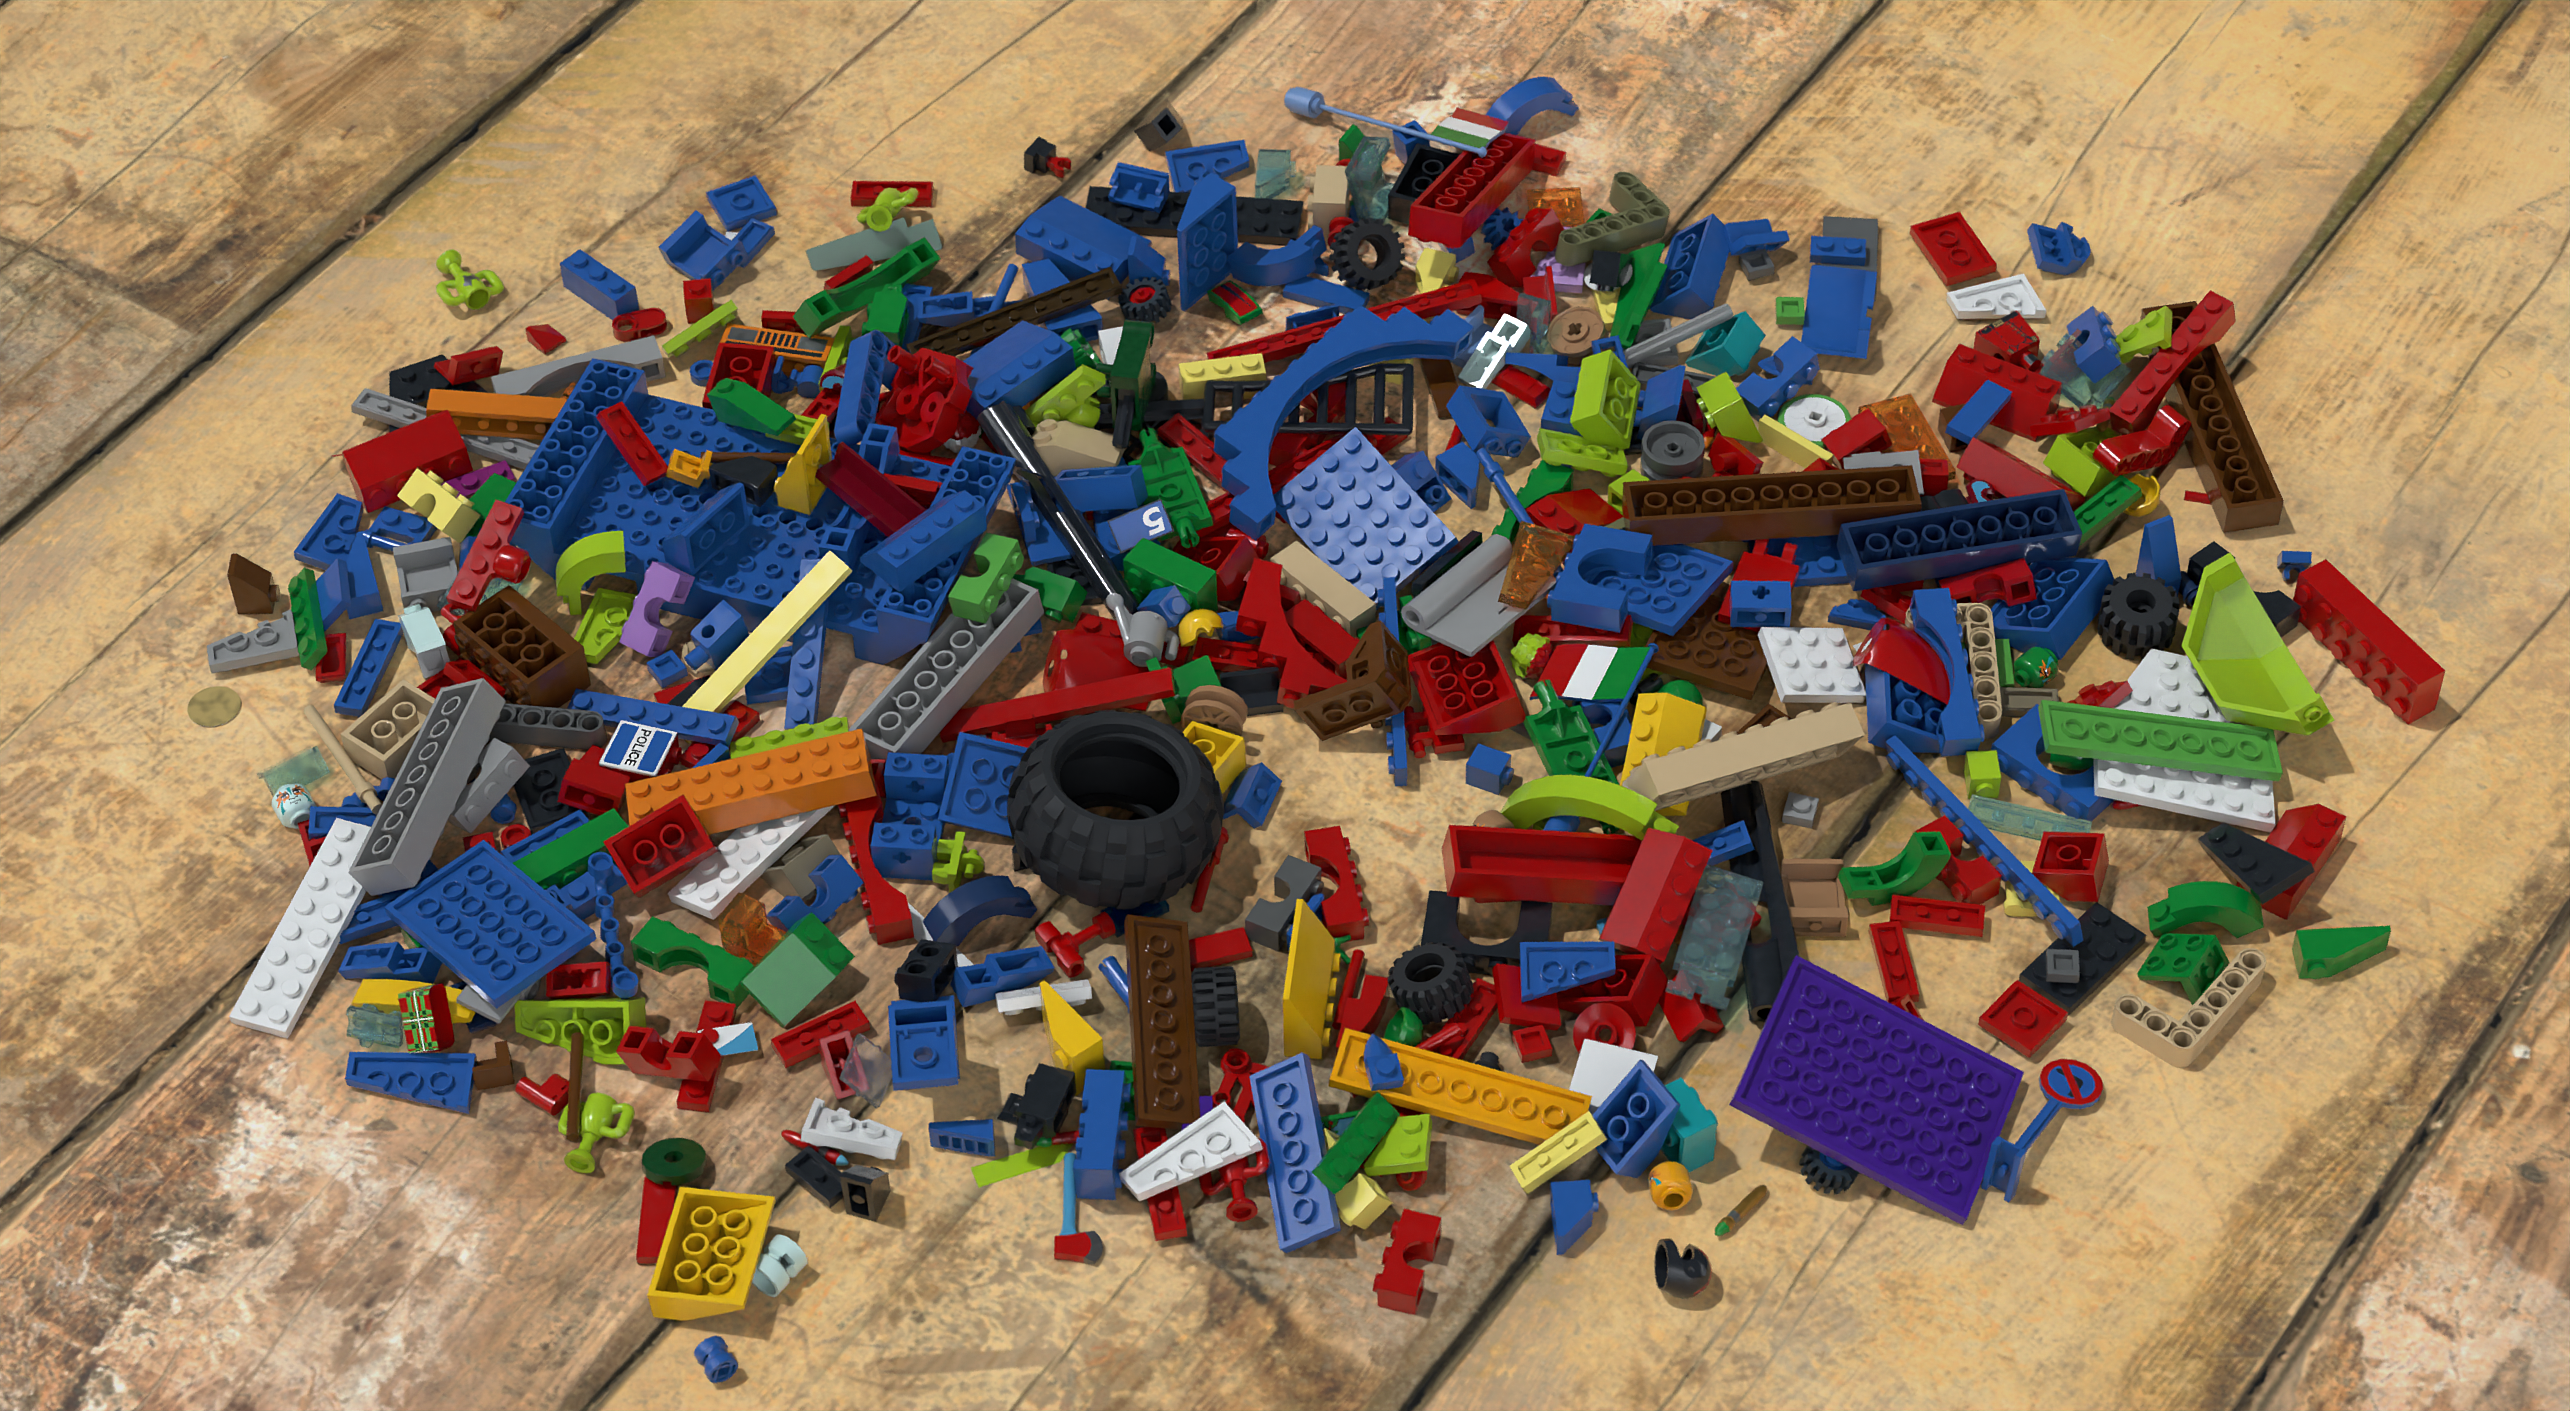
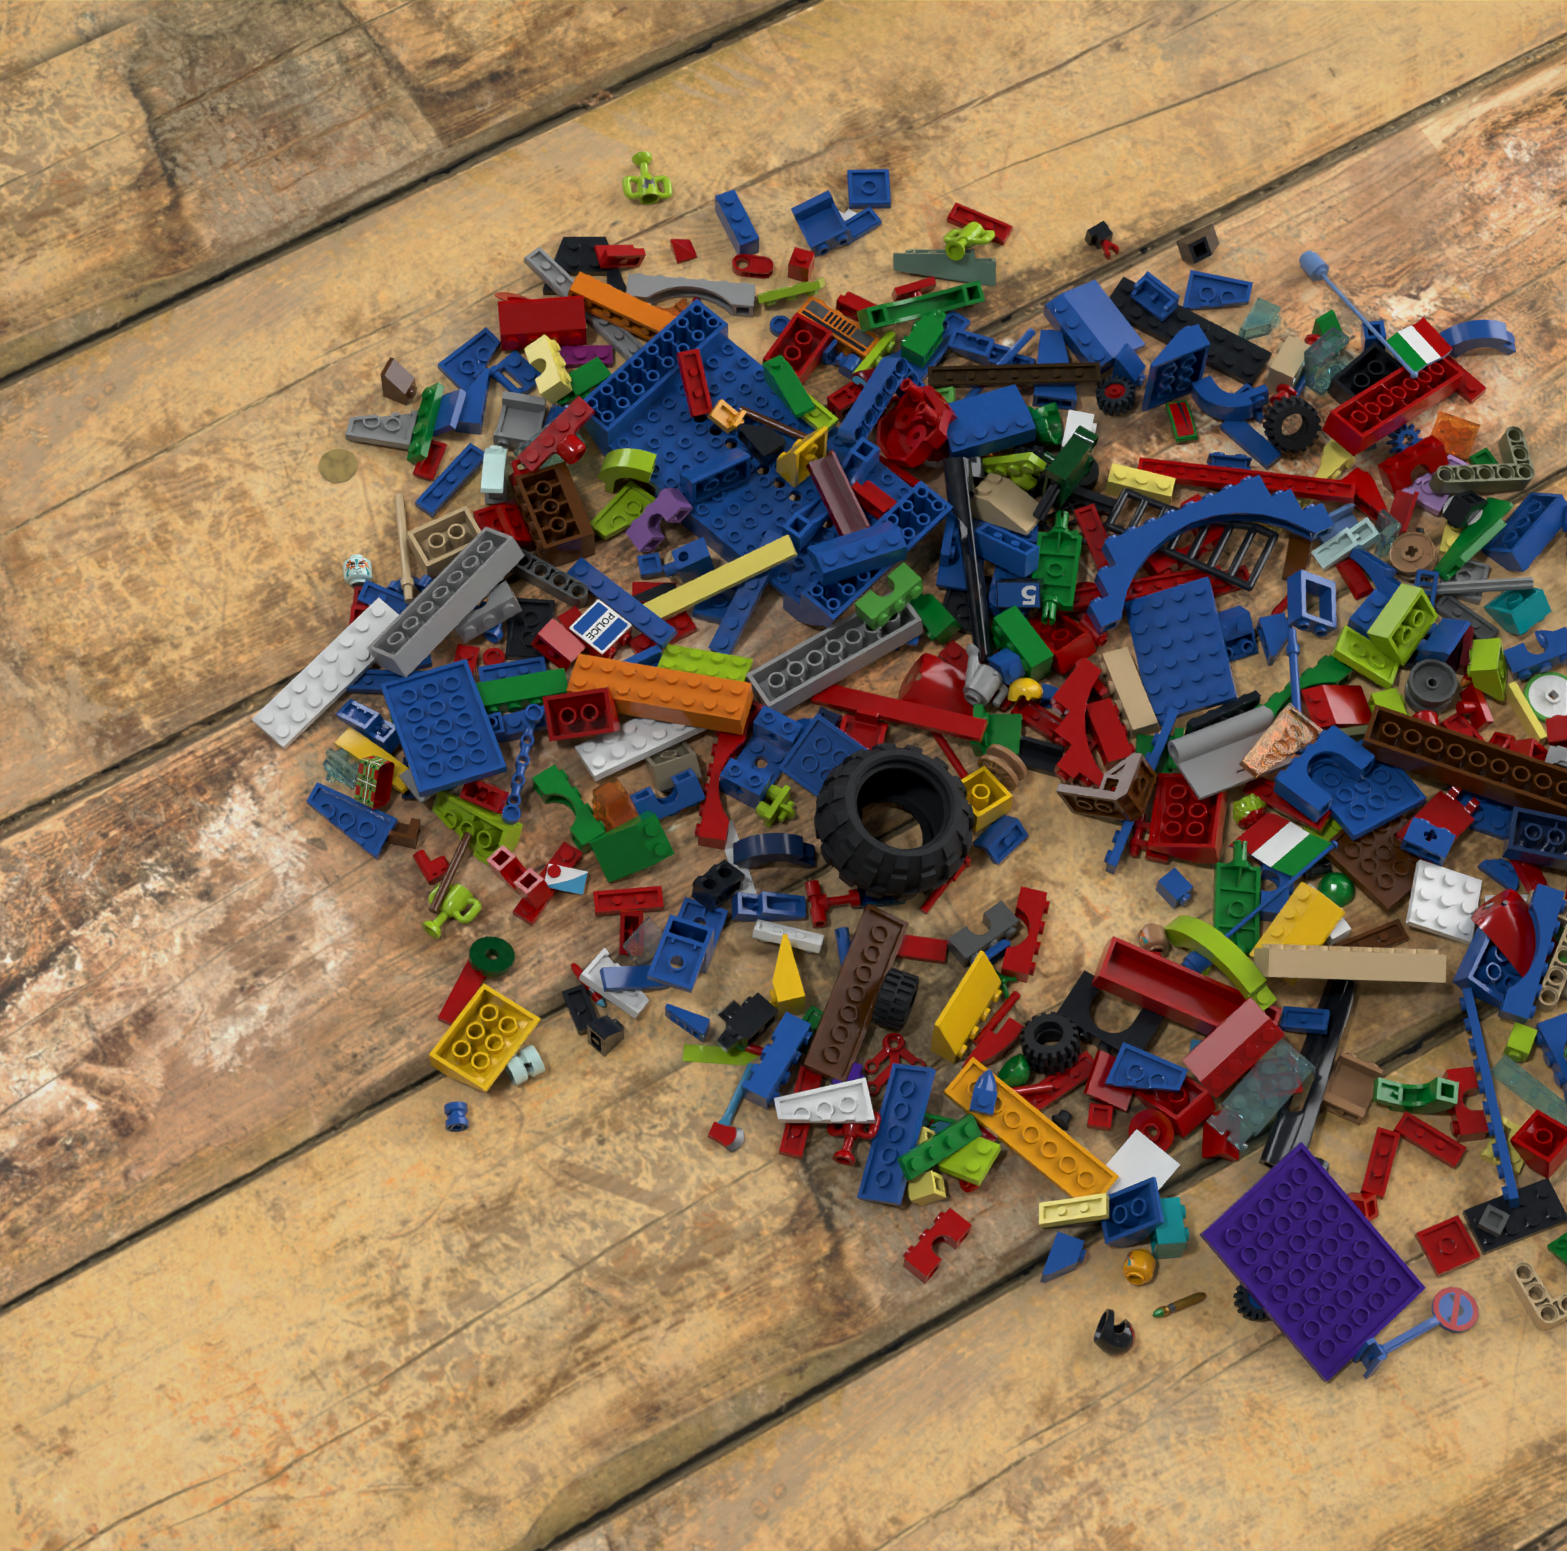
camera: 20 degrees right, 15 degrees up
(296, 769) = (369, 542): clear light blue panel -> none
(872, 1113) = (628, 979): none -> blue tile
(1800, 810) = (1378, 1013): light grey plate -> none

